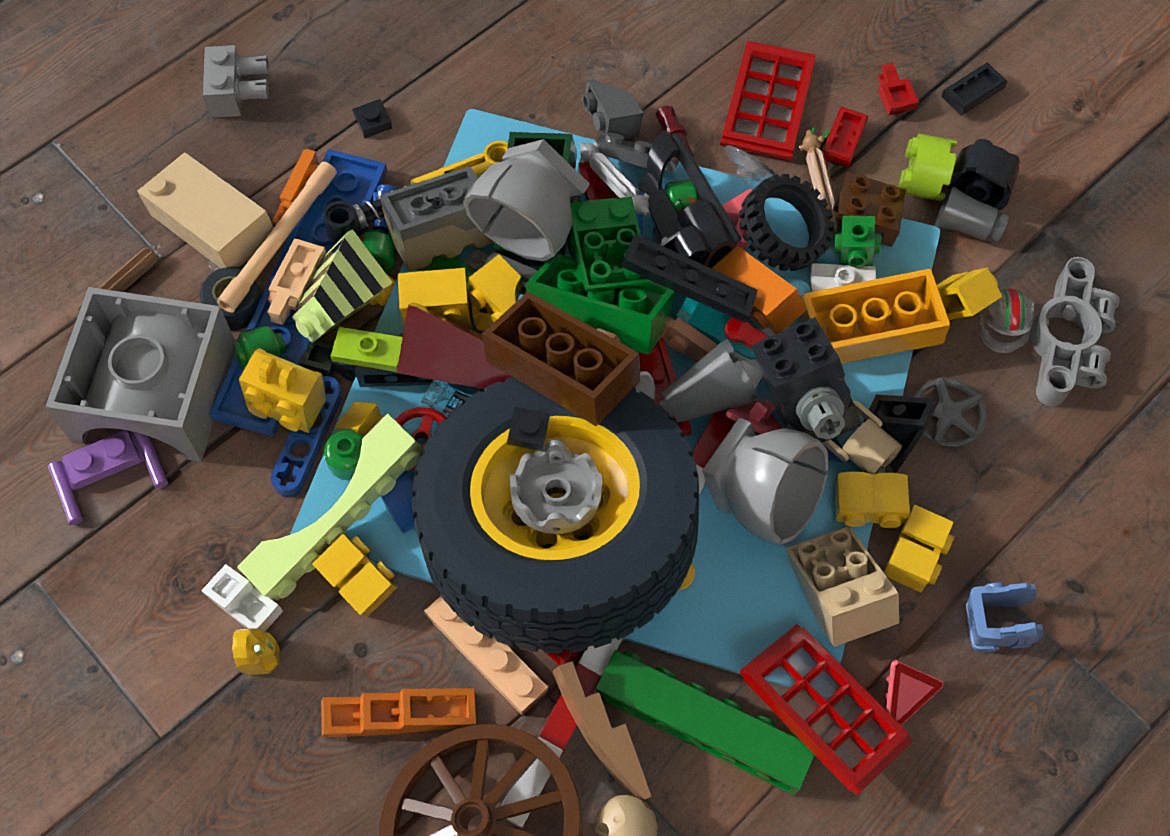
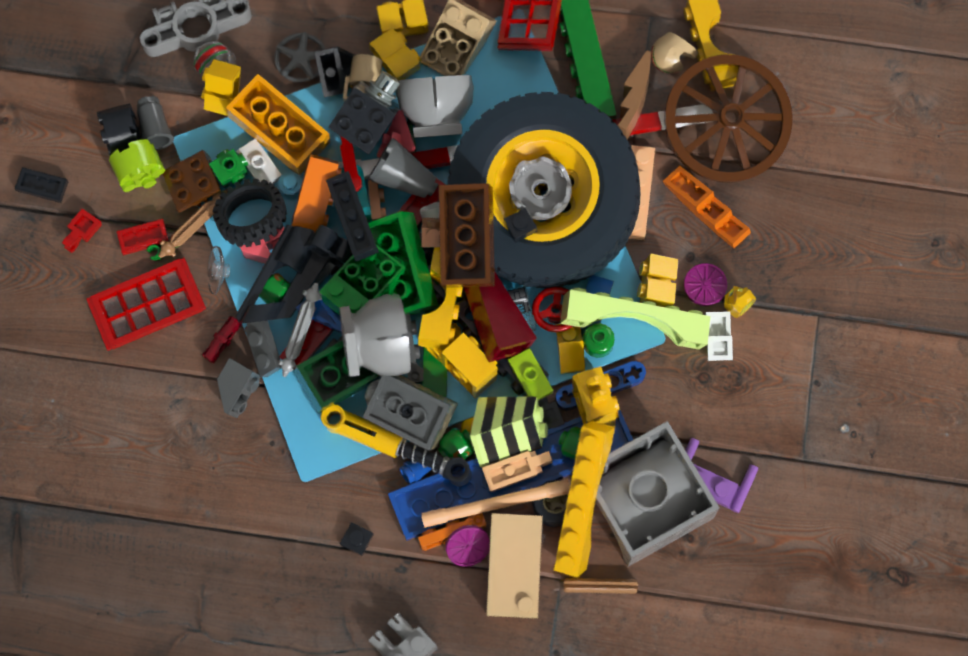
camera: 125 degrees left, 10 degrees up
(212, 309) = (576, 530): none -> yellow arch
(271, 189) = (467, 545): none -> magenta wheel
(311, 635) = (705, 284): none -> magenta wheel

